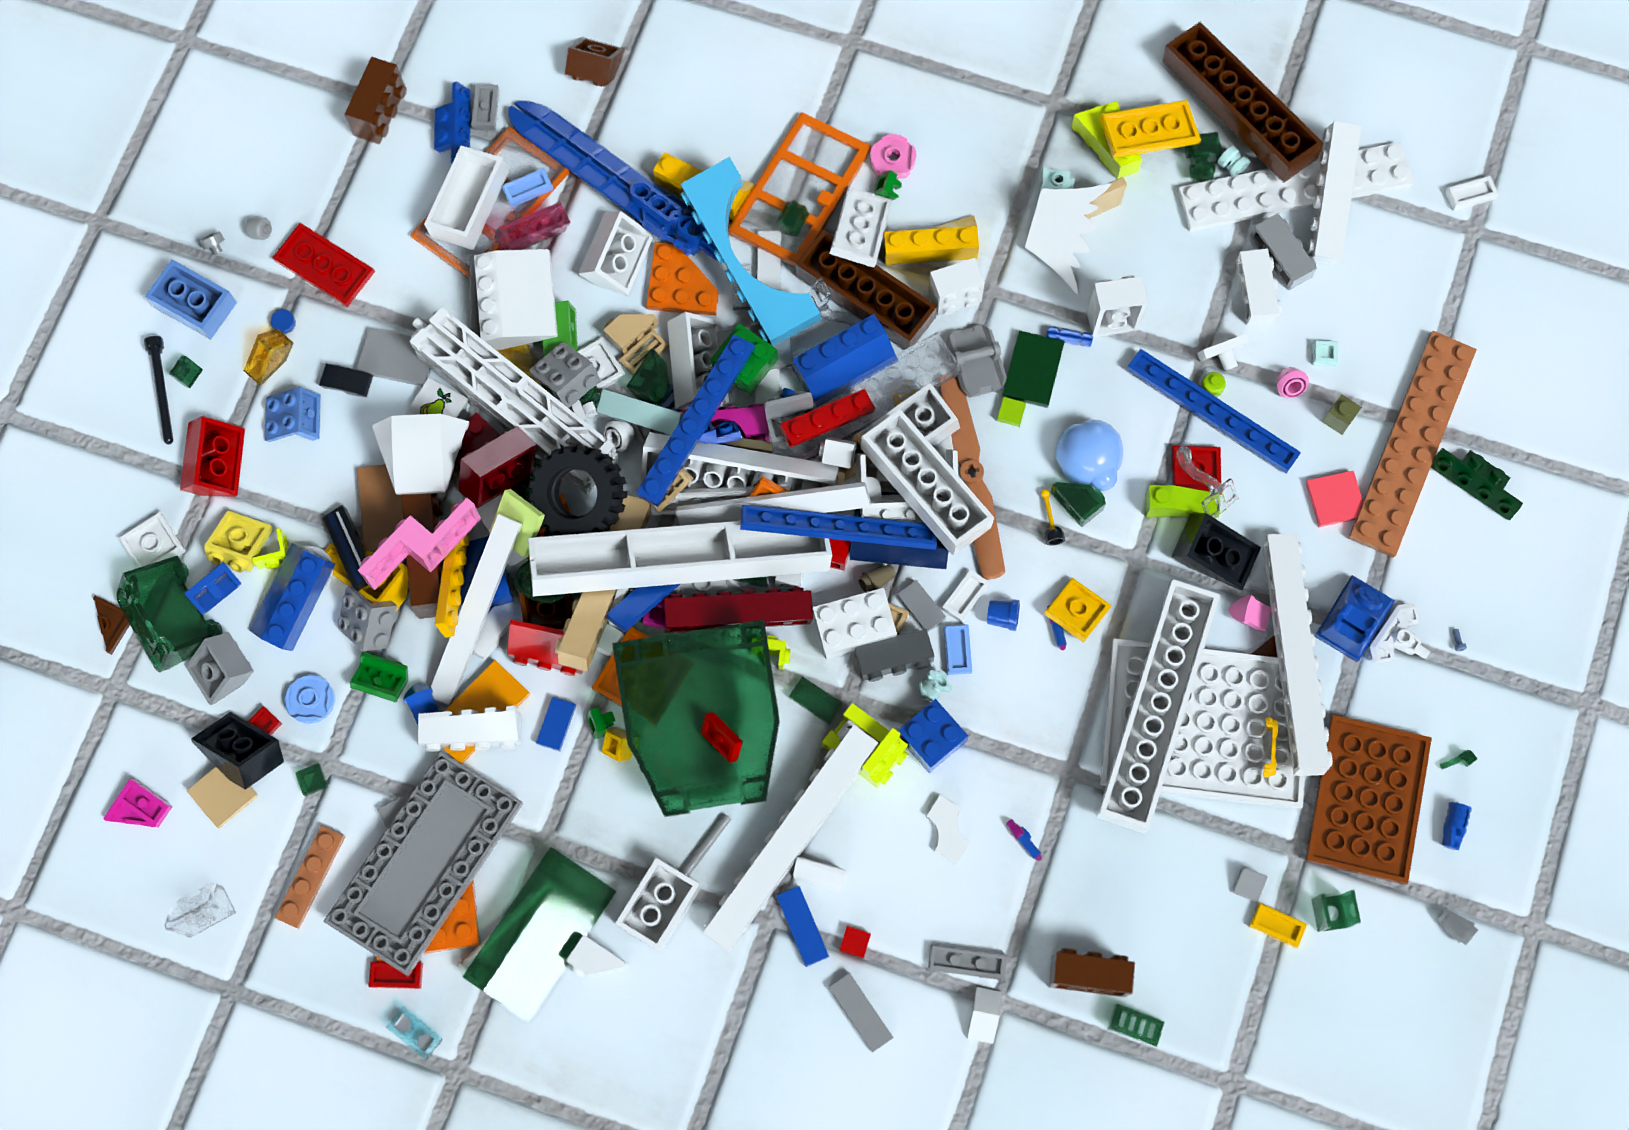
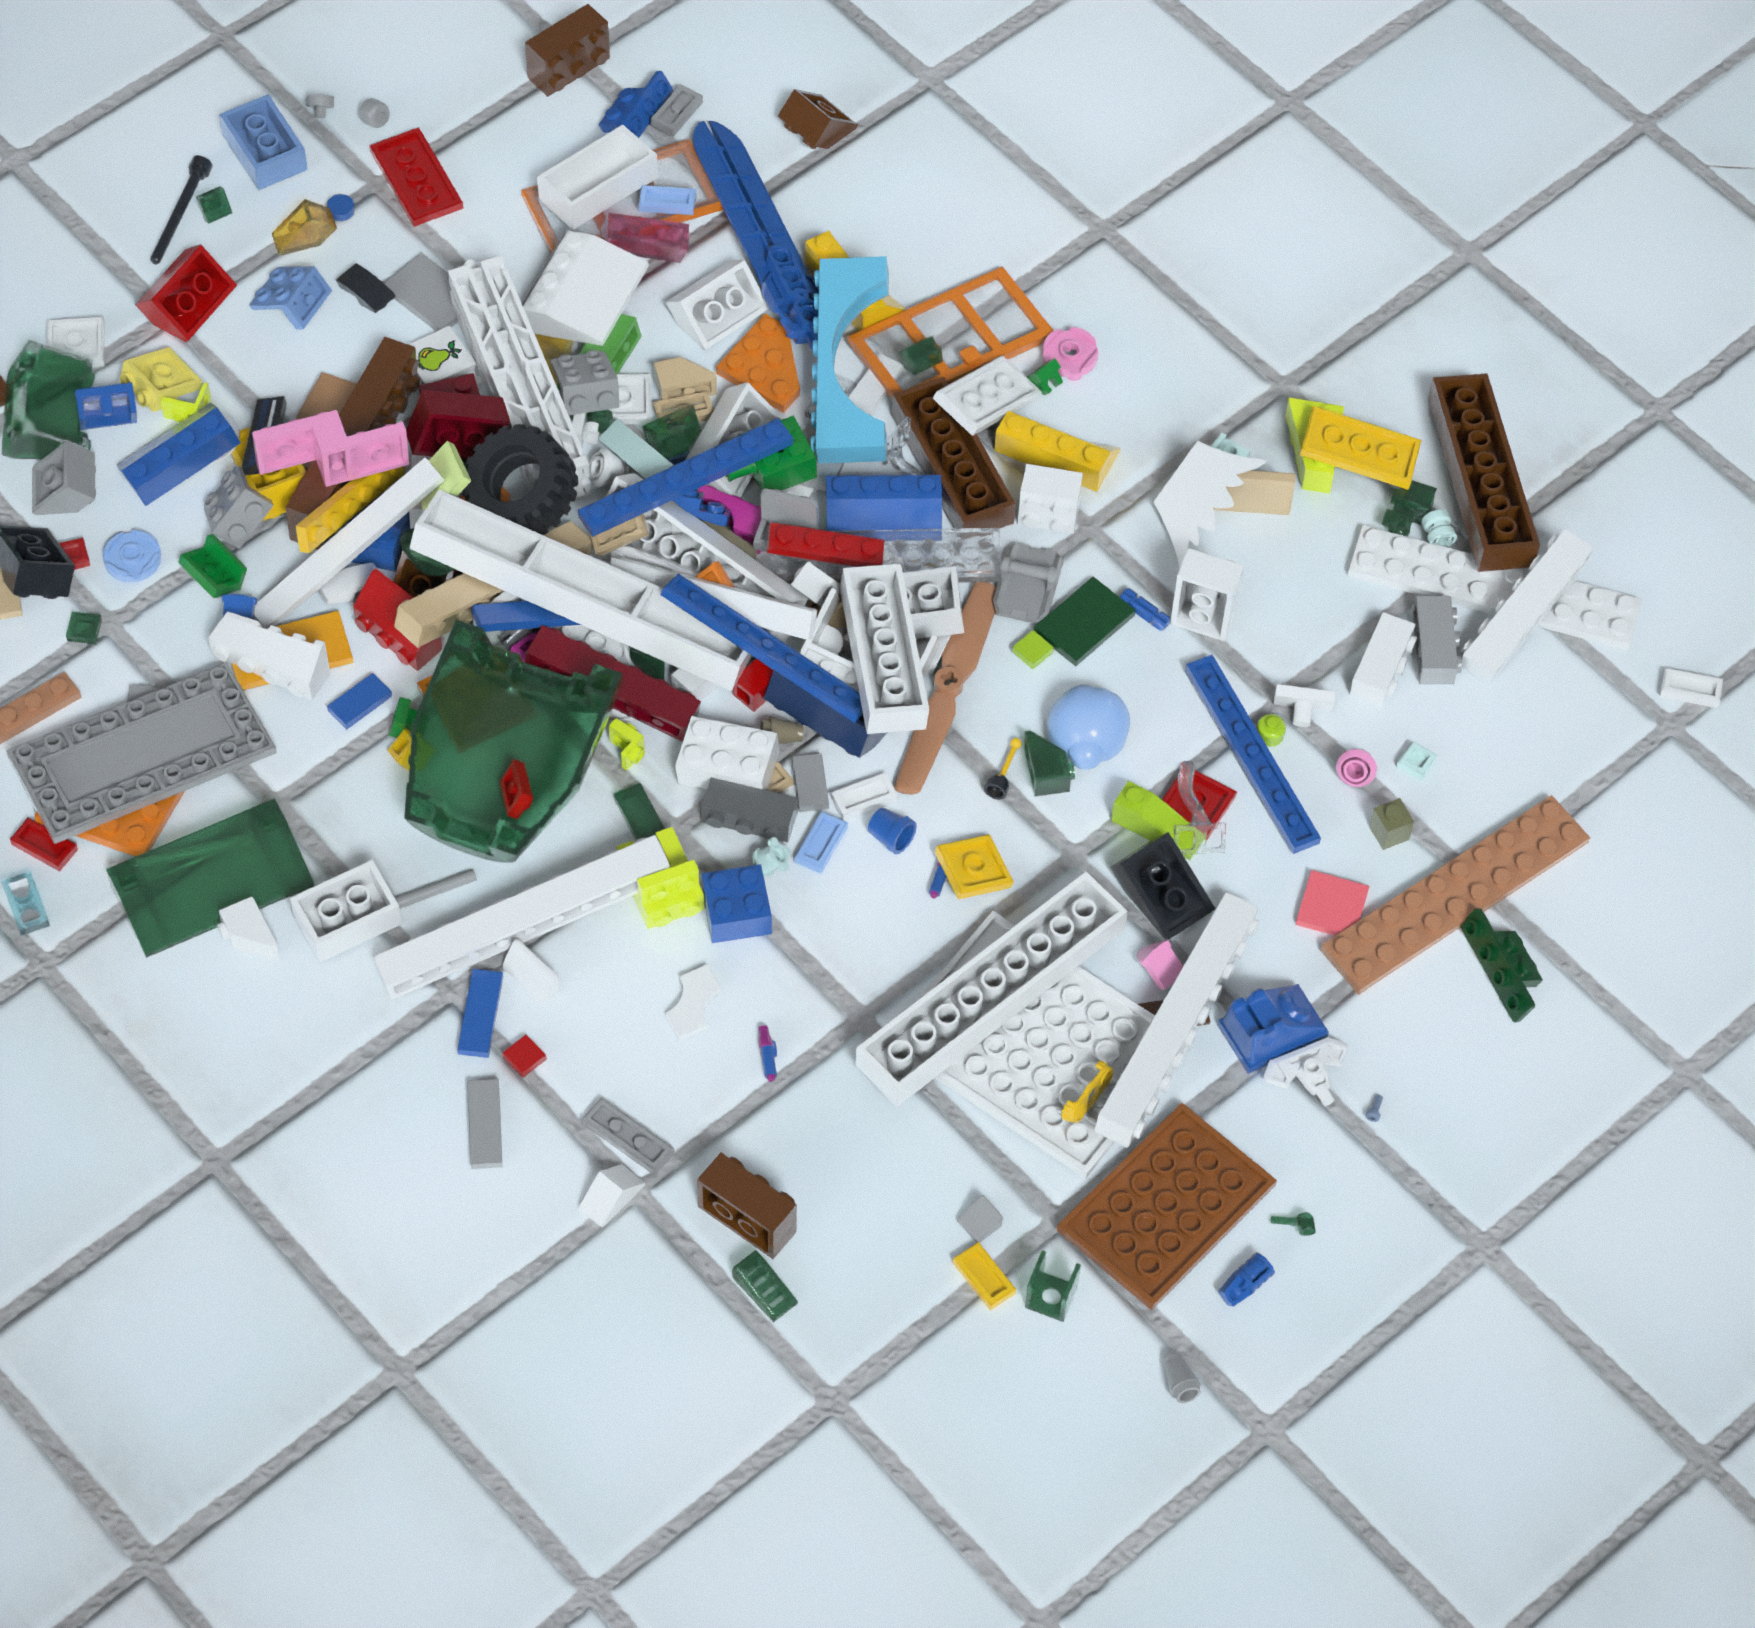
camera: 25 degrees right, 15 degrees down
(420, 450) = (392, 370): white wedge -> none

